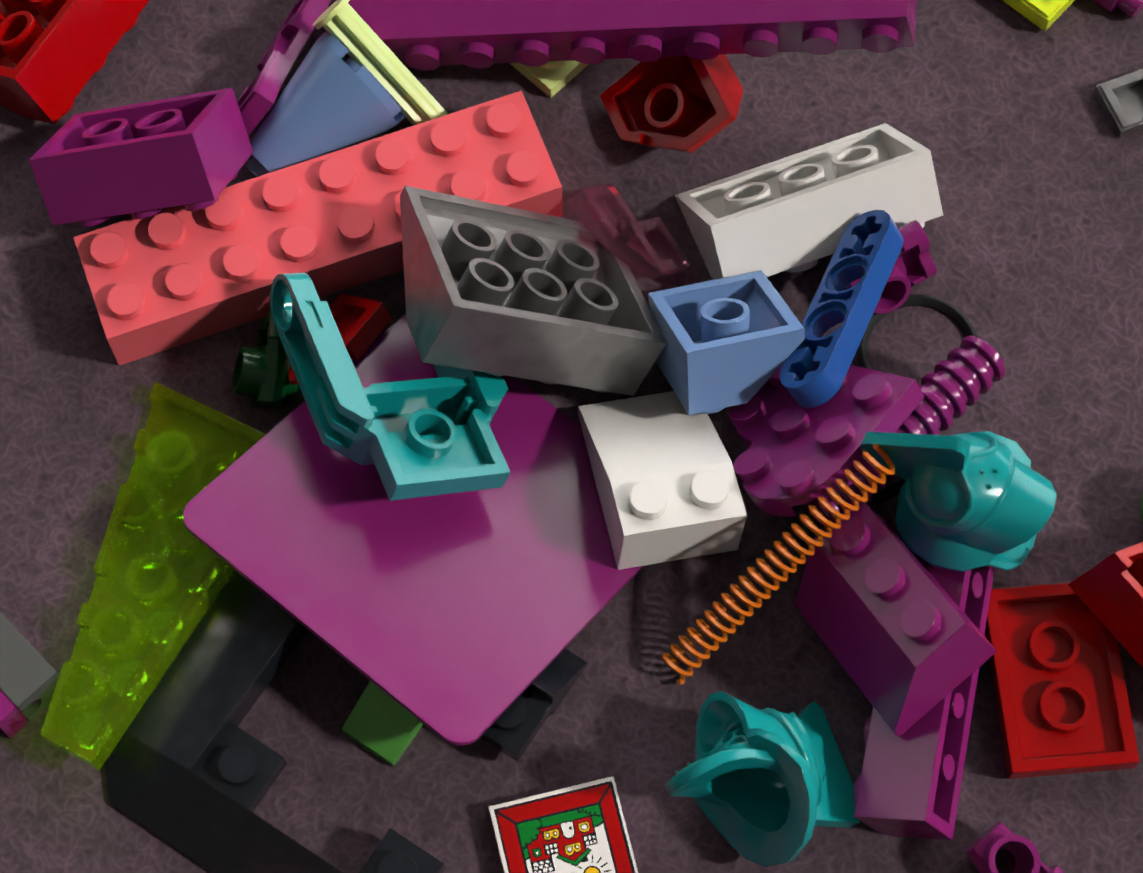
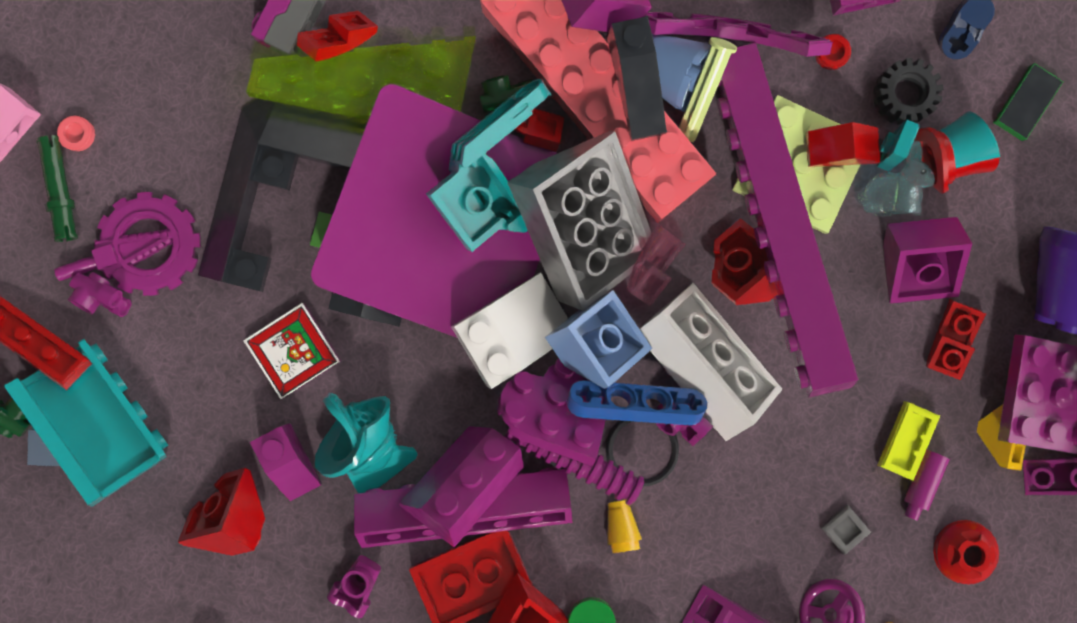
camera: 70 degrees right, 20 degrees up
(63, 586) = (343, 34): none -> red slope
(329, 138) = (638, 77): none -> black slope
(679, 653) = (419, 388): orange piece -> none
(966, 498) = (539, 508): teal helmet -> none
(1038, 414) = (622, 528): none -> yellow cone

